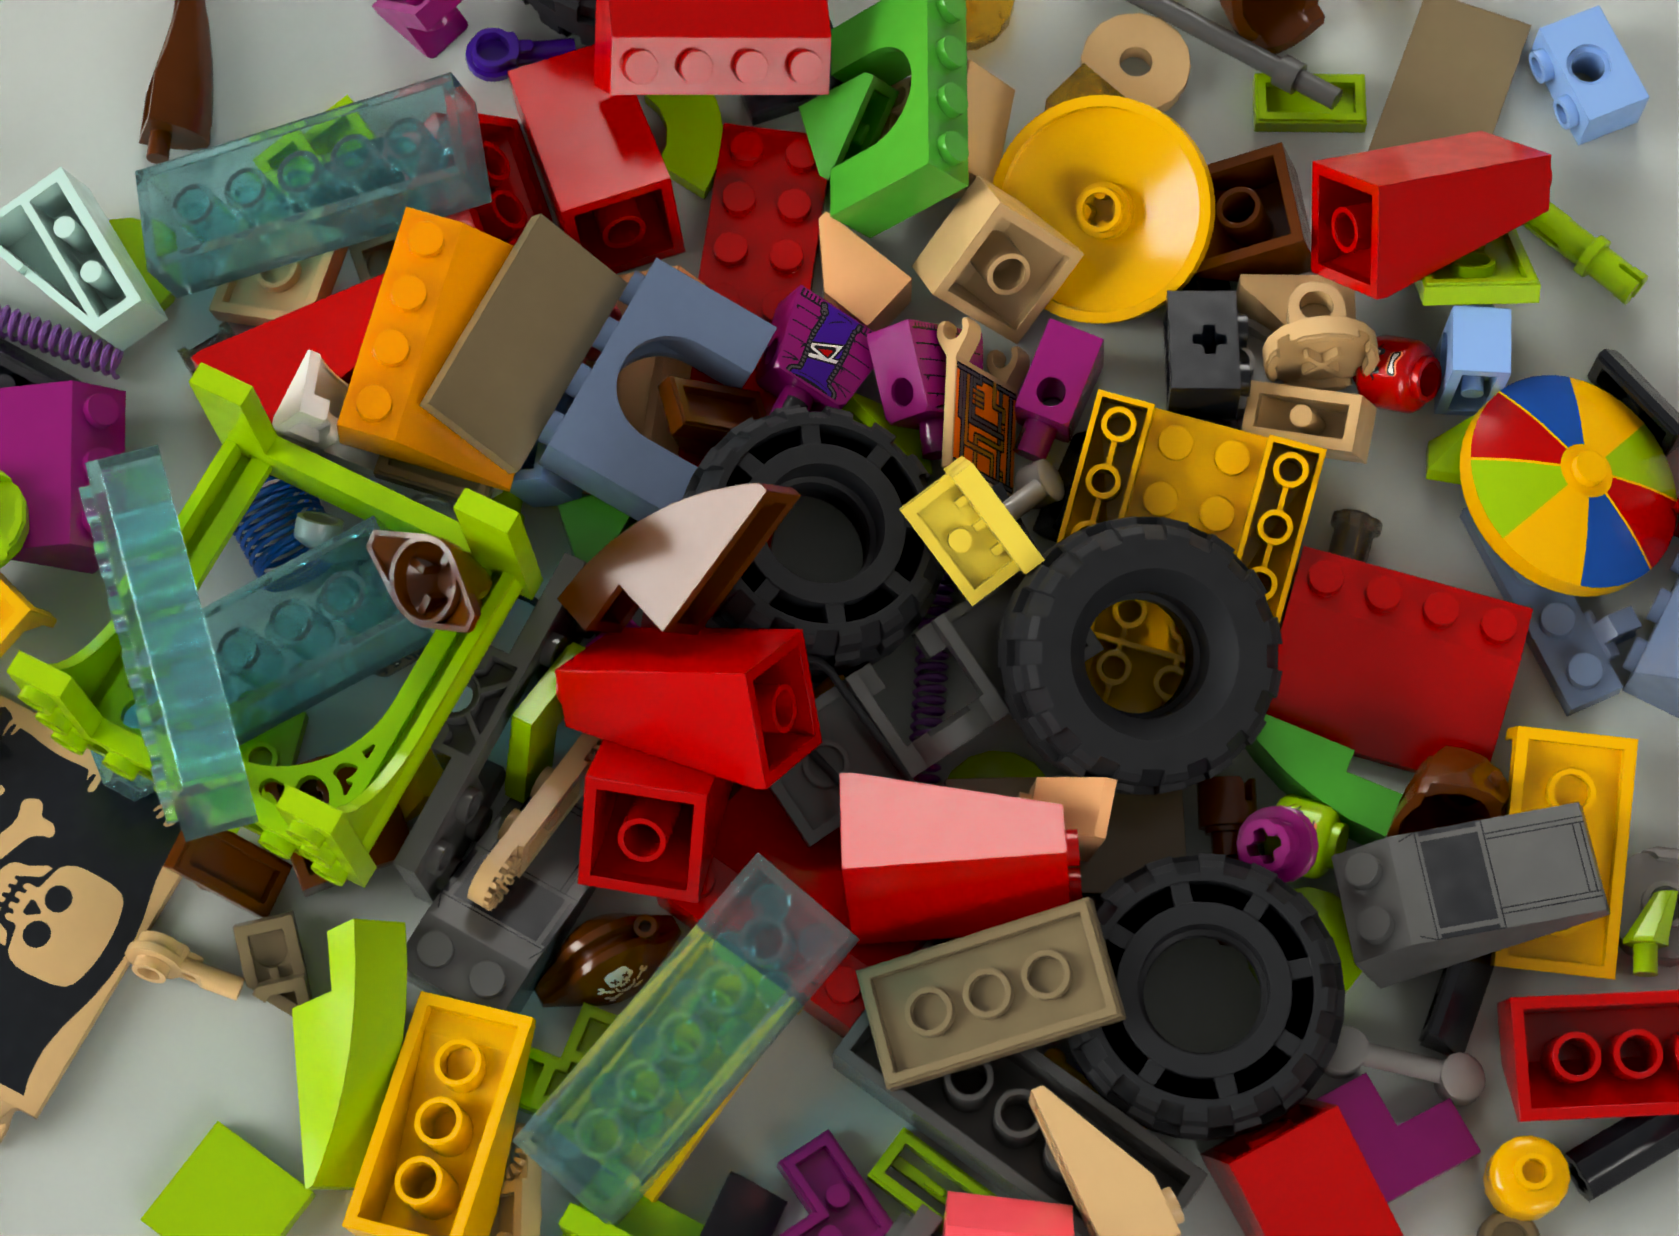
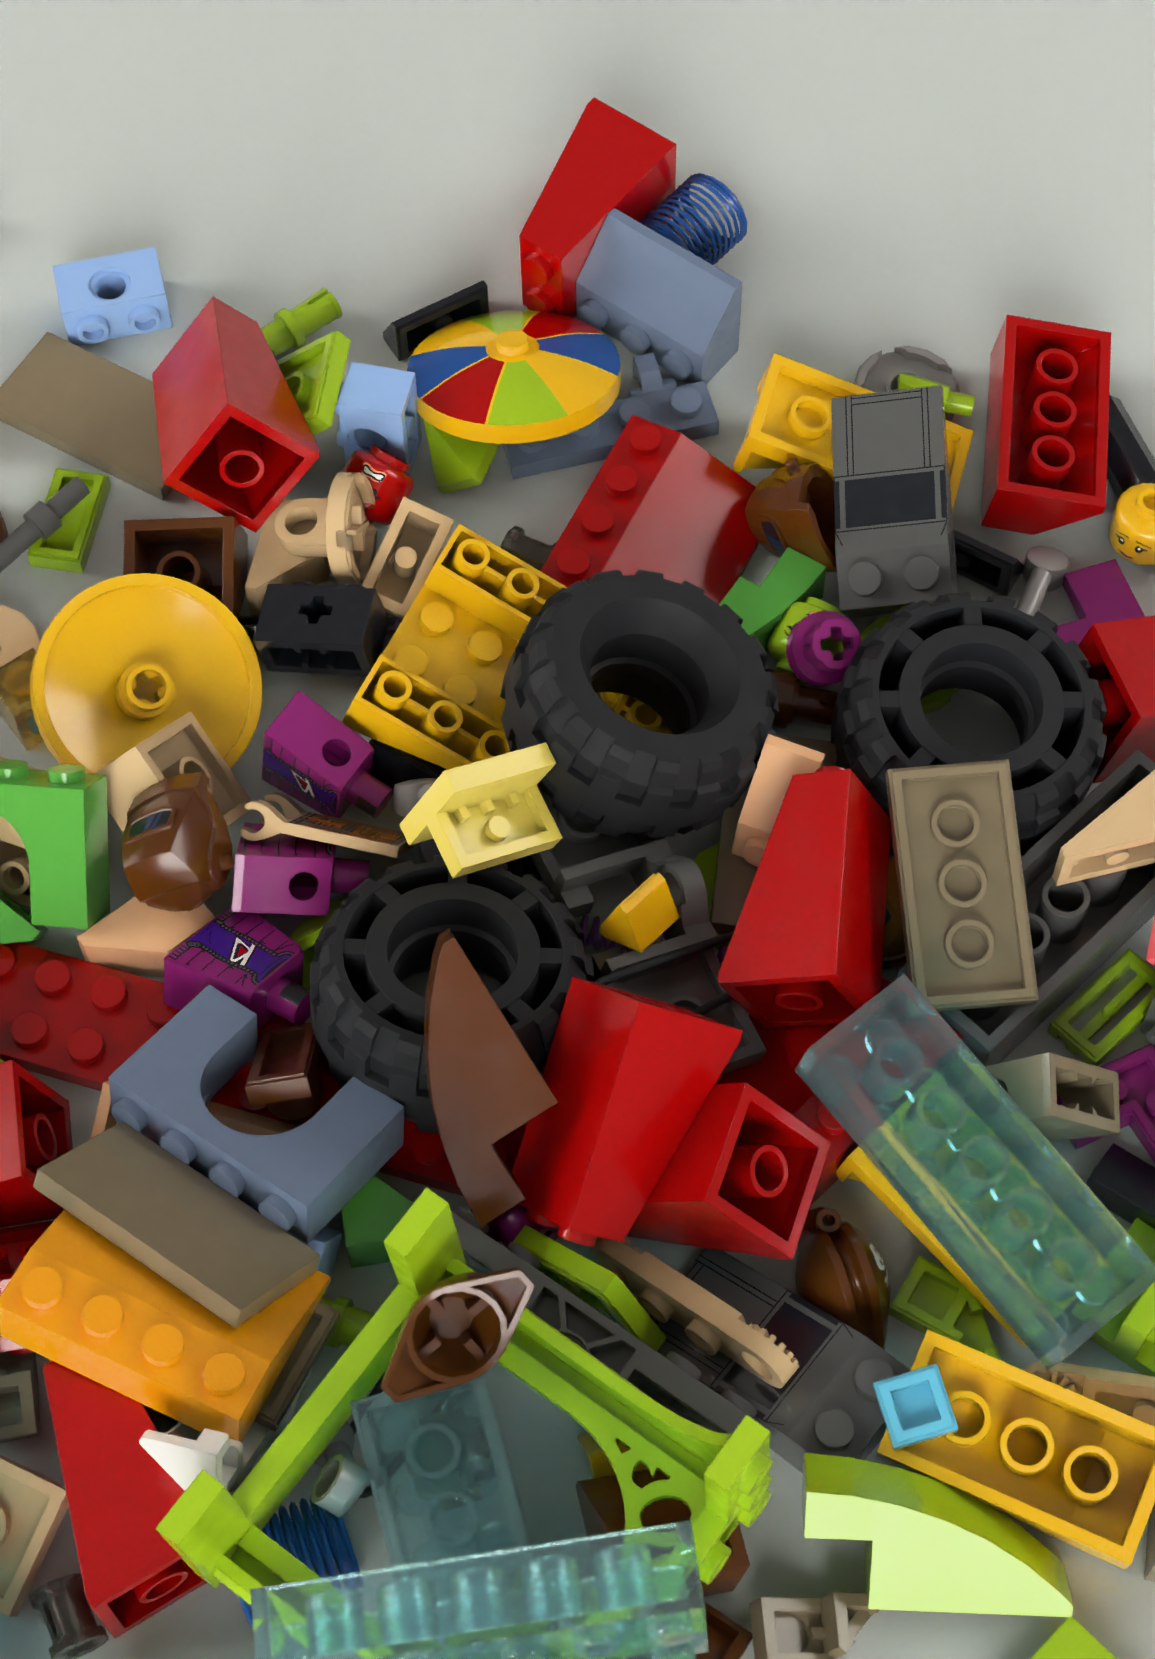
camera: 80 degrees left, 10 degrees down
(457, 1014) = (915, 1407): none -> medium azure tile
(791, 1095) = (1086, 1090): none -> dark tan torso
(908, 699) = (642, 915): none -> yellow slope
(912, 264) = (176, 844): none -> reddish brown helmet

